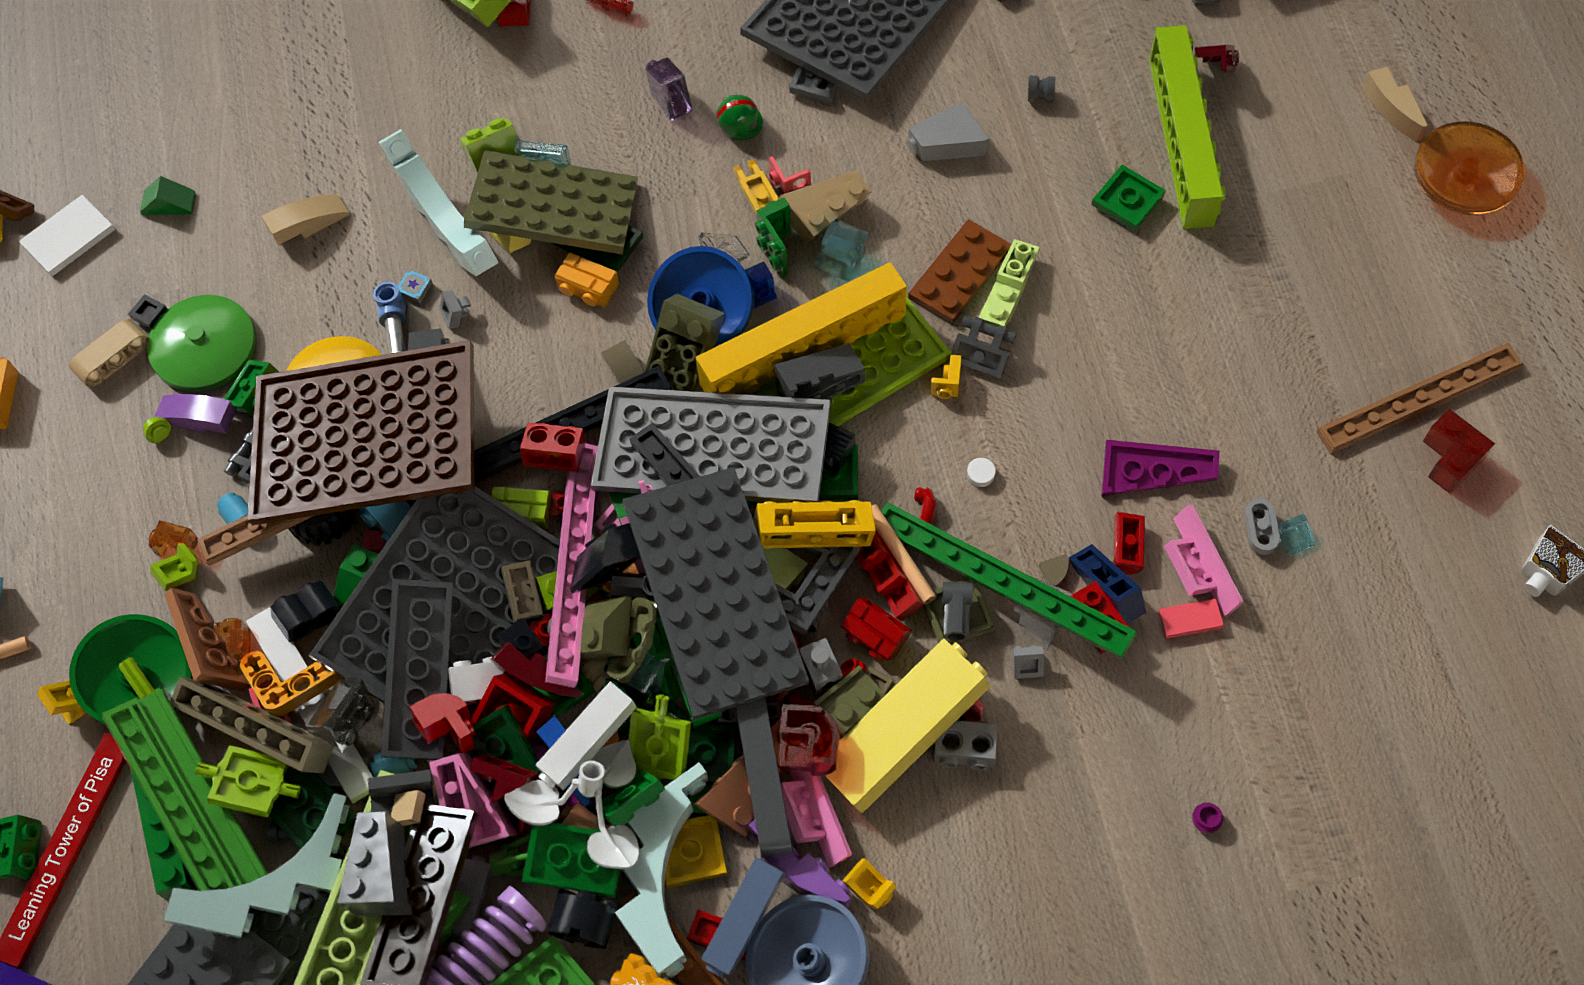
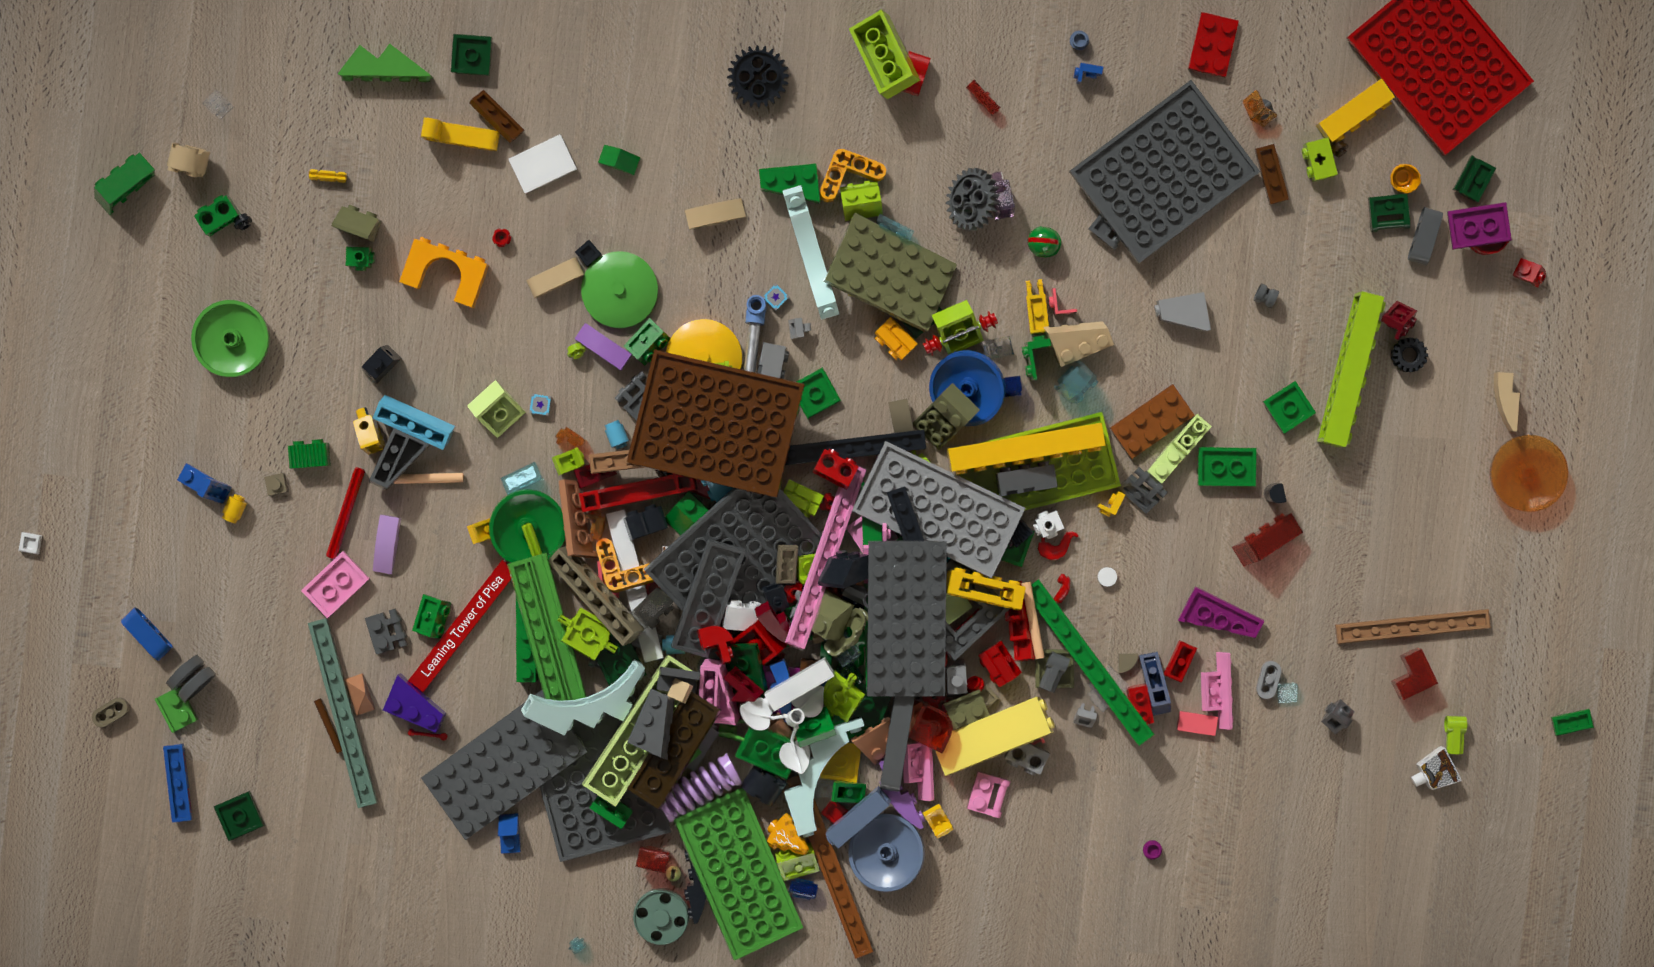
camera: 15 degrees right, 25 degrees up
(22, 328) = (496, 237): none -> red plate
(58, 536) = (496, 409): none -> yellowish green slope
(121, 513) = (540, 404): none -> tile
(124, 605) = (521, 478): none -> clear light blue slope
(217, 577) = (585, 478): none -> dark red slope
(245, 593) = (636, 492): none -> red arch
(321, 60) = (744, 65): none -> black gear
(373, 163) = (783, 178): none -> green wedge
(453, 116) = (842, 167): none -> light orange beam
(502, 380) = (817, 393): none -> green tile
(630, 92) = (972, 199): none -> dark grey gear
(663, 232) = (958, 328): none -> lime brick
(688, 904) = (824, 783): none -> clear plate
(714, 886) = (848, 791): none -> green slope
(873, 428) = (1055, 524): none -> white brick
(897, 466) = (1056, 552): none -> red piece
(921, 822) = (982, 792): none -> bright pink plate
(1080, 288) = (1226, 466): none -> green plate
(1159, 291) = (1275, 493): none -> black brick
(1172, 352) = (1268, 539): none -> clear red wedge
(1252, 84) = (1409, 343): none -> black tyre
(1381, 545) = (1337, 716): none -> flat silver brick
(1551, 504) = (1455, 728): none -> lime piece

